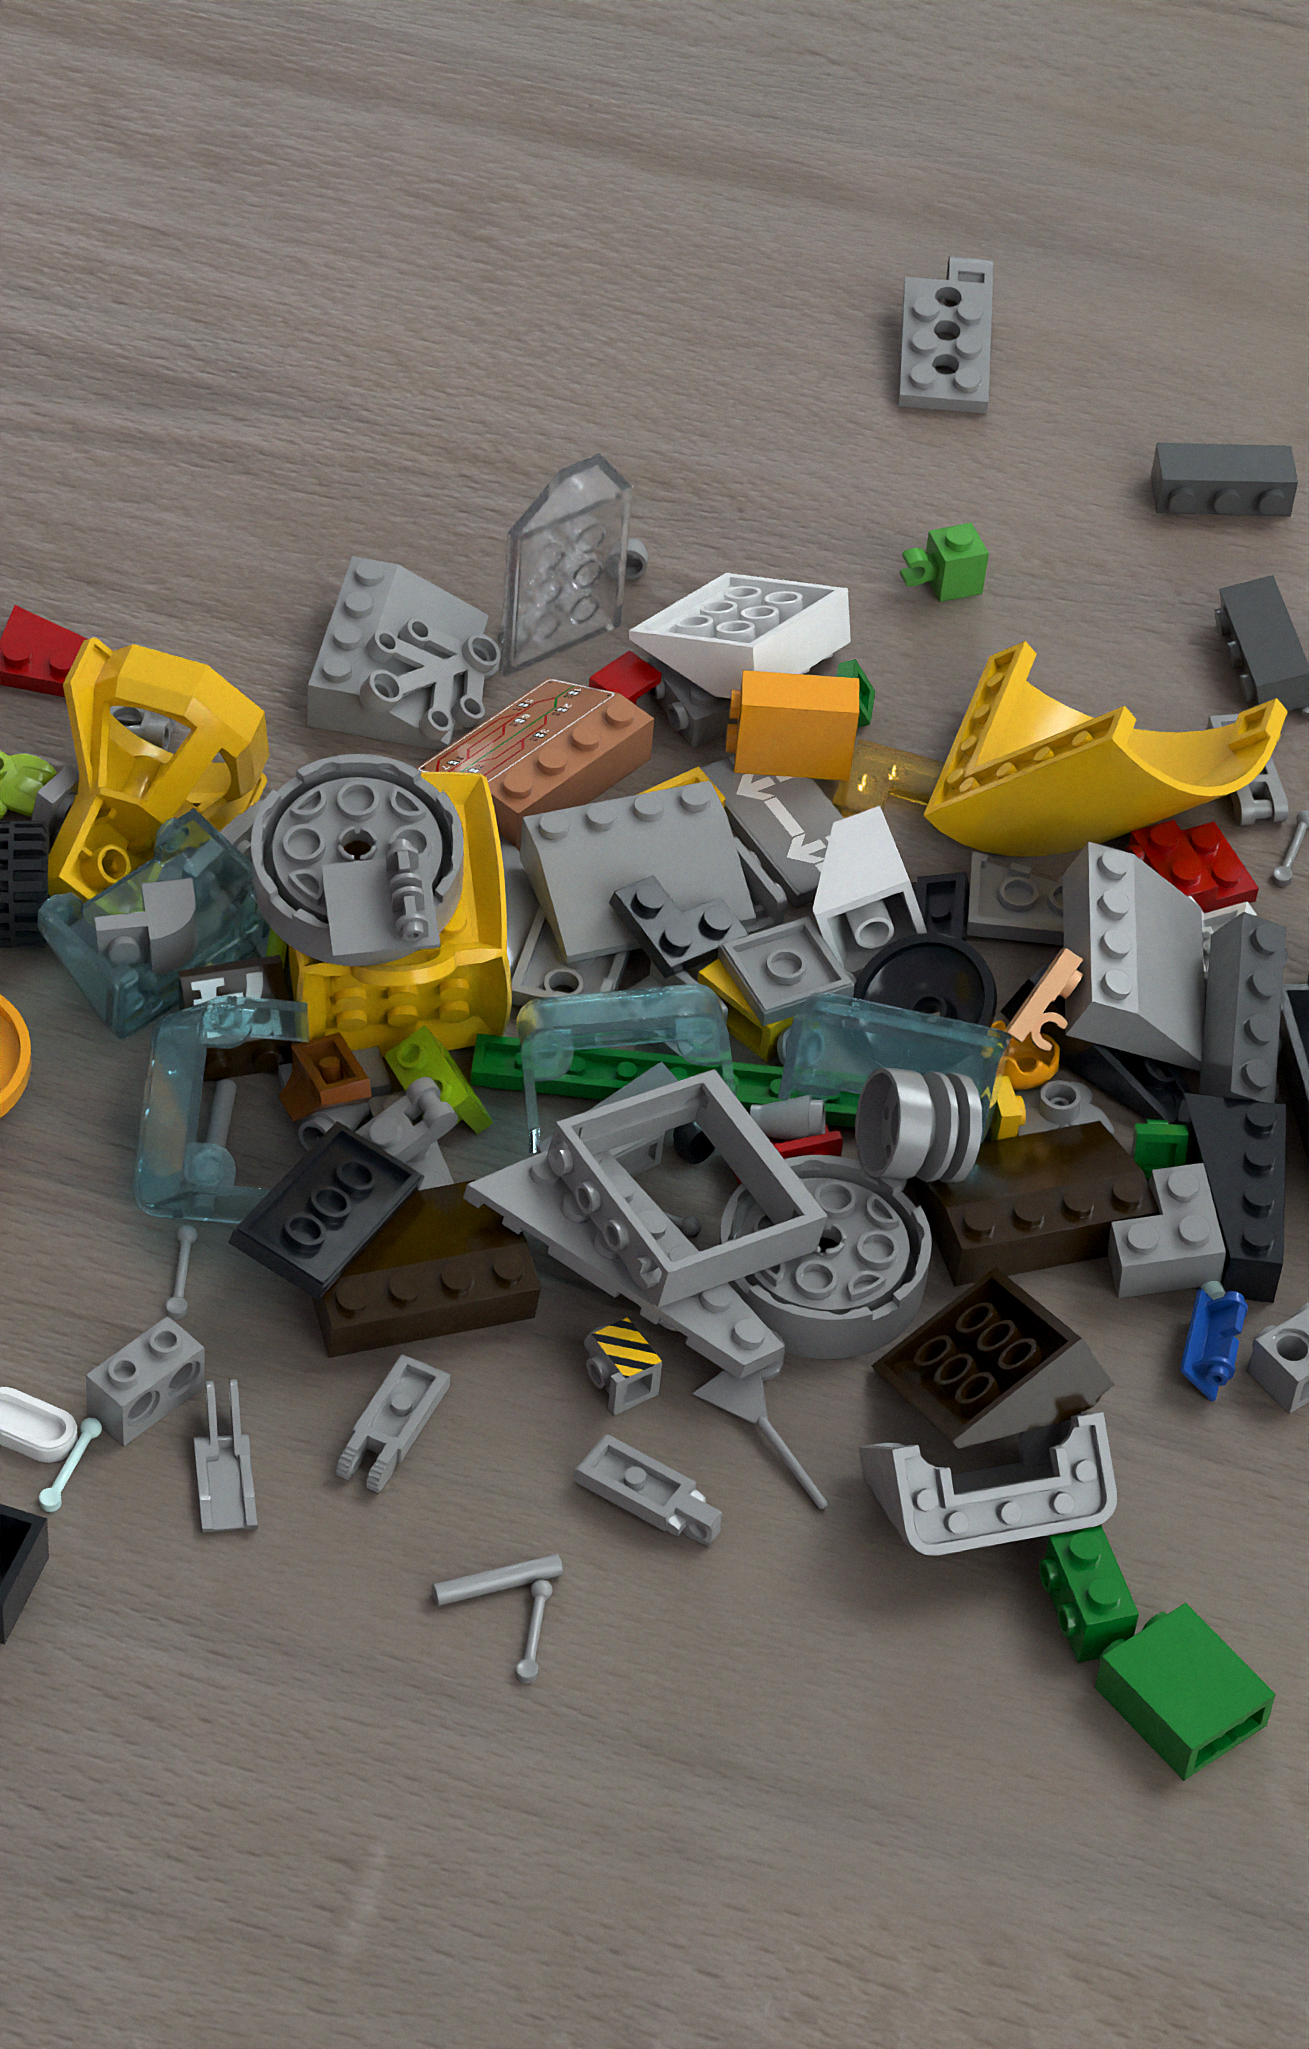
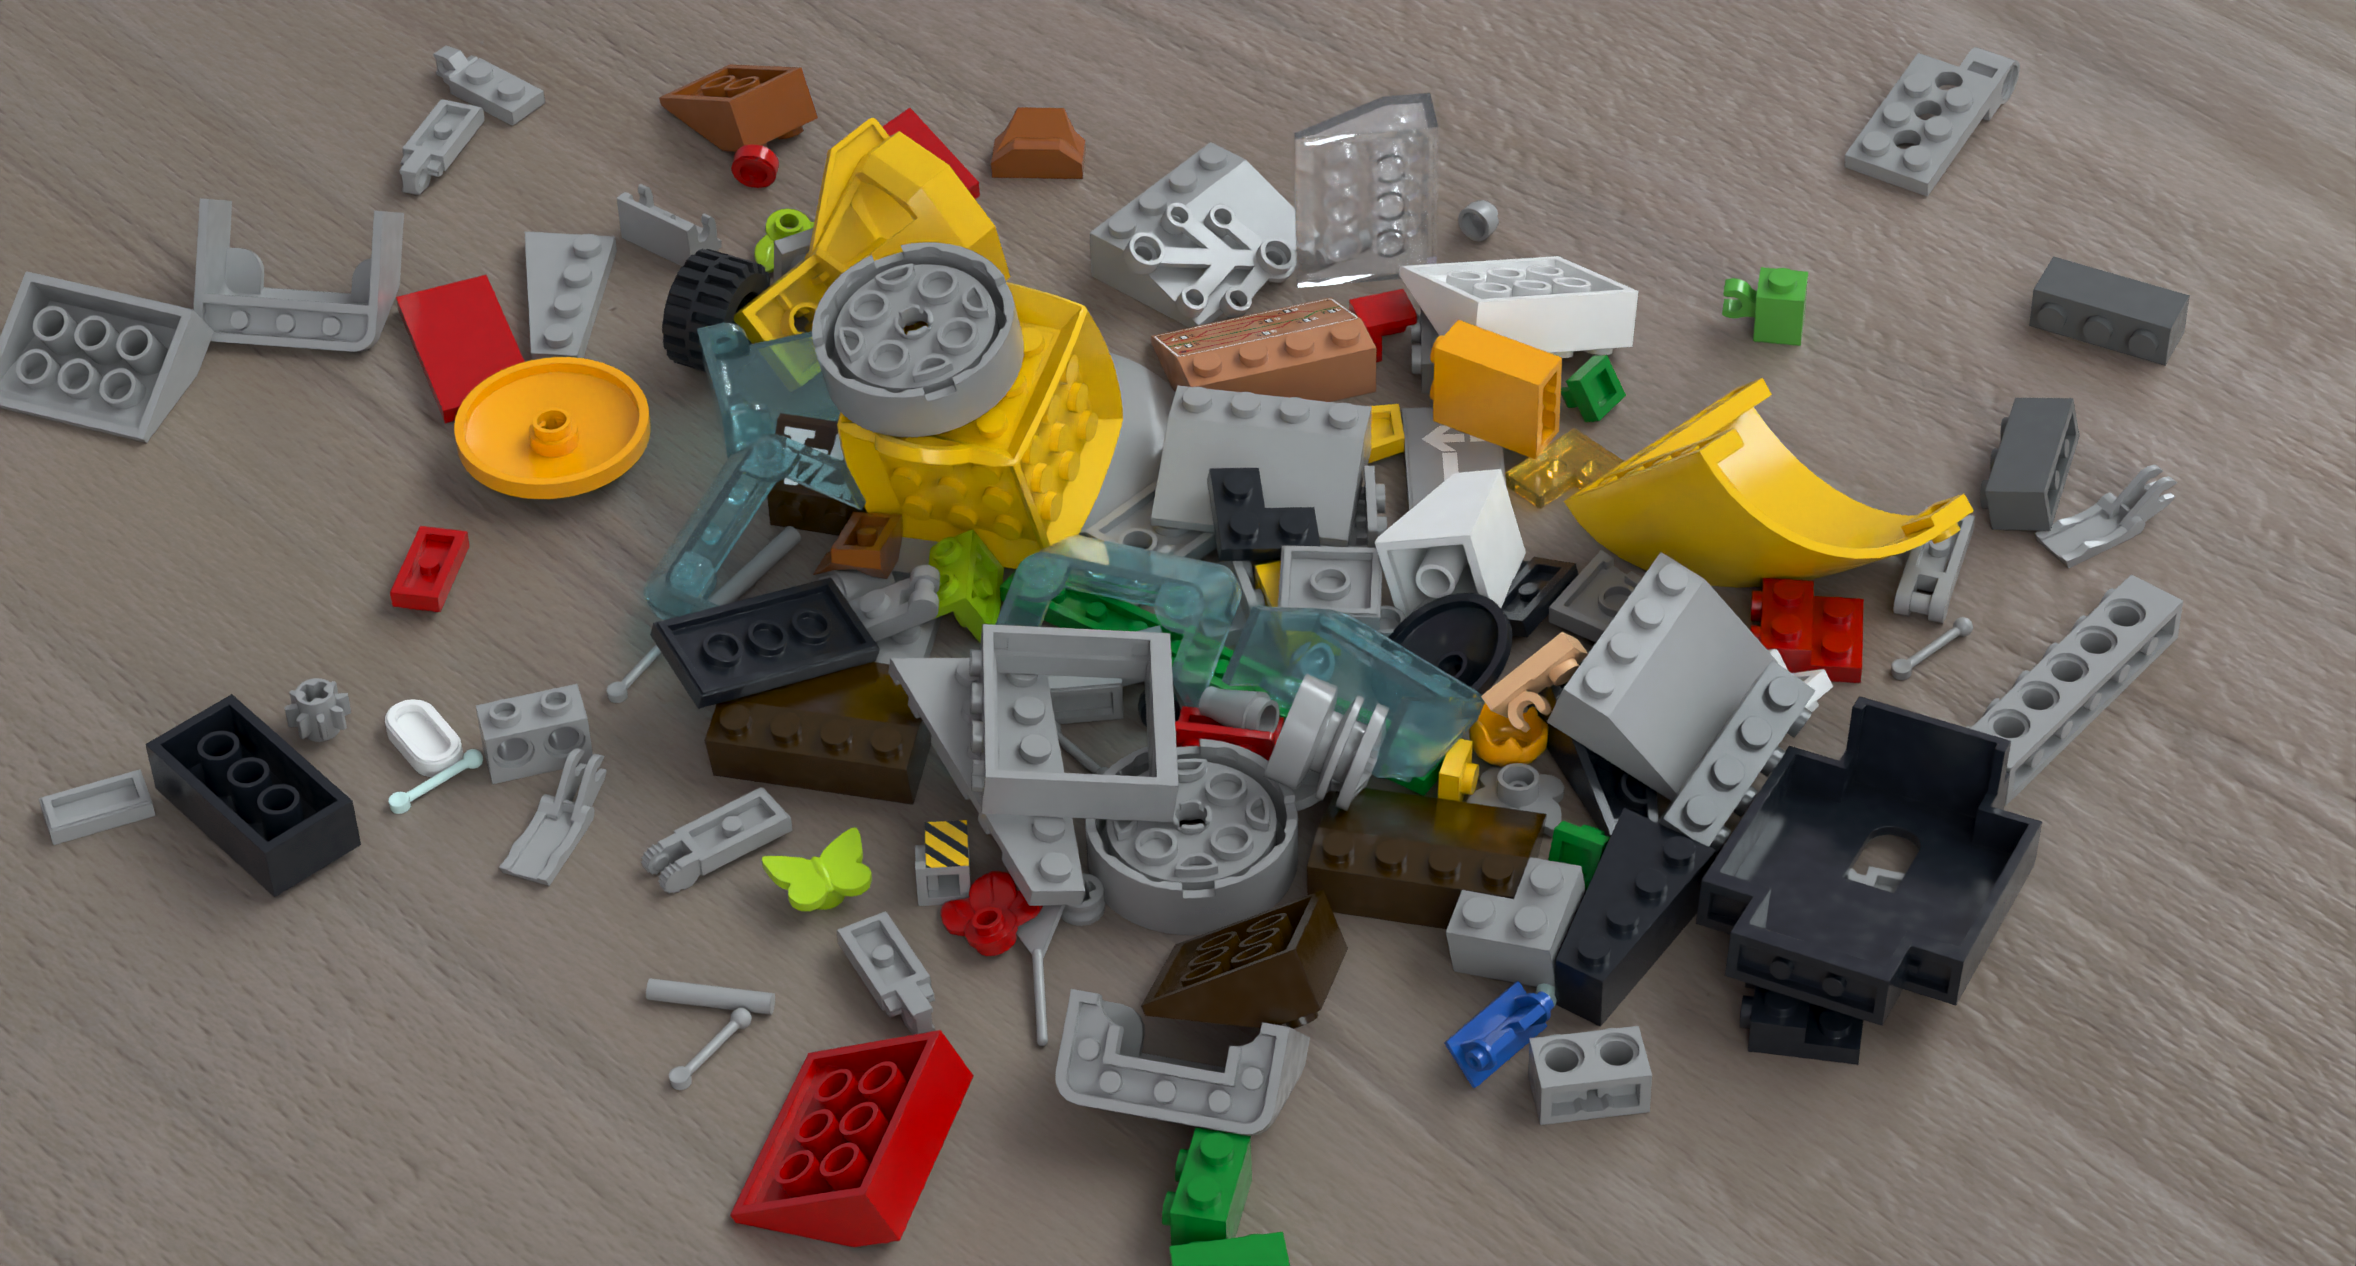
camera: 35 degrees right, 5 degrees down
(159, 935) = (788, 384): light grey brick -> none
(168, 608) = (1039, 146): none -> dark orange slope
(381, 904) = (893, 372): light grey hinge -> none
(522, 1419) = (823, 879): none -> lime animal
(690, 1392) = (989, 914): none -> red plate
(740, 1669) = (856, 1141): none -> red slope

